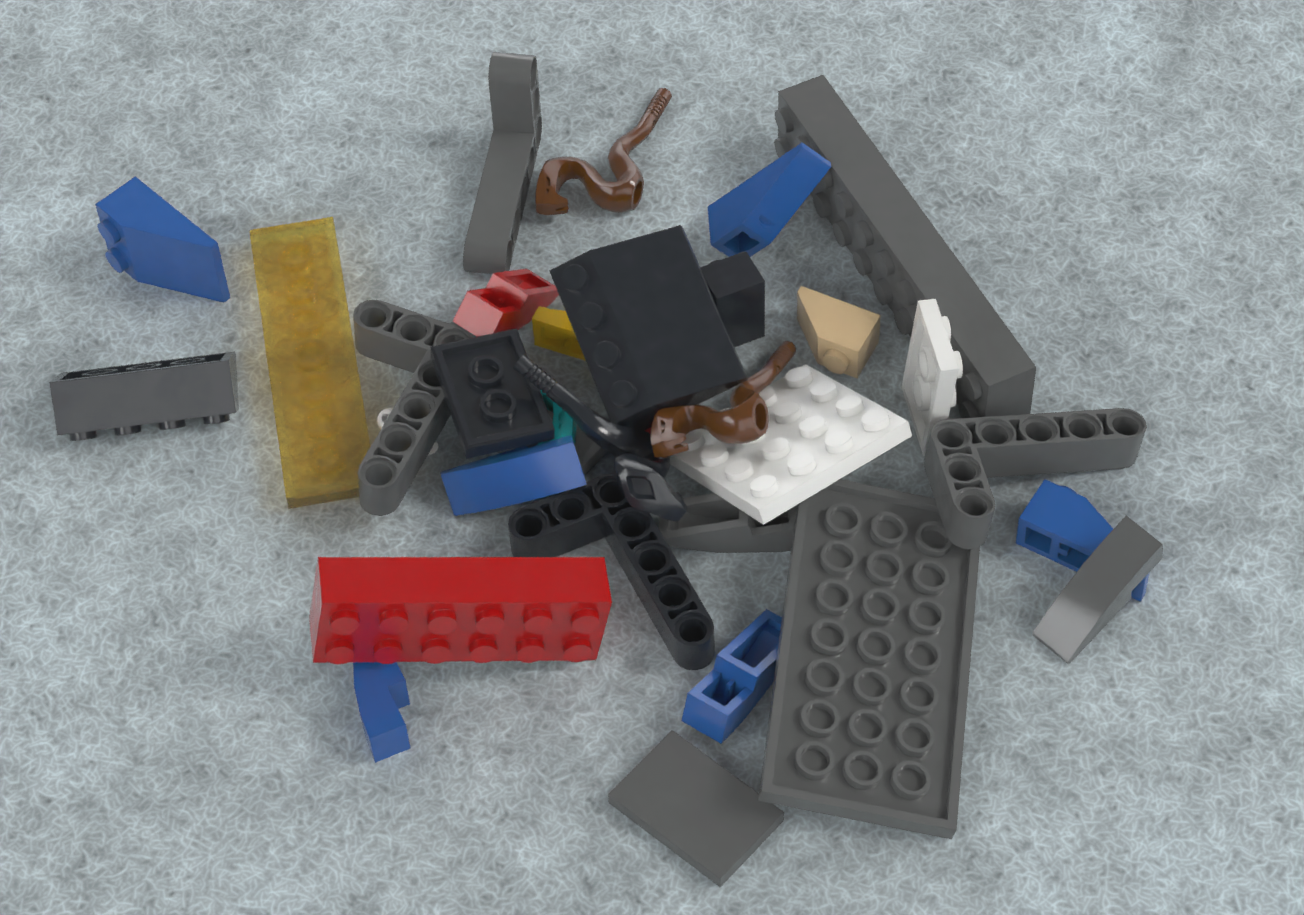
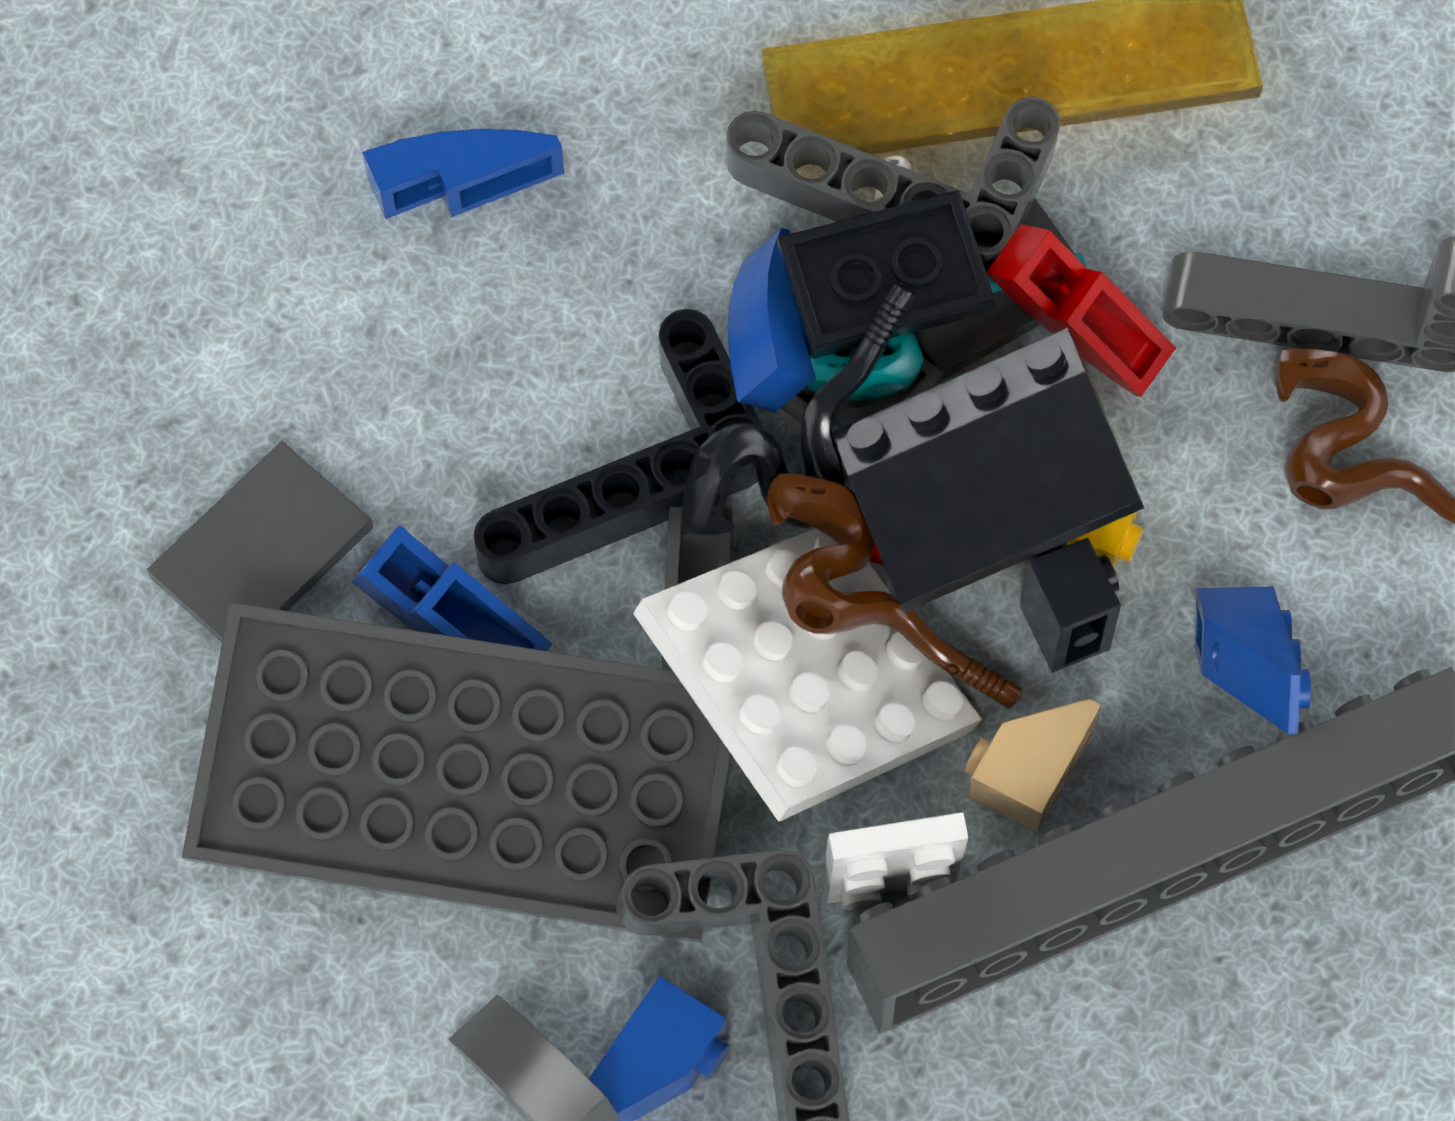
camera: 90 degrees right, 15 degrees up
(458, 609) = (521, 234): red brick -> none

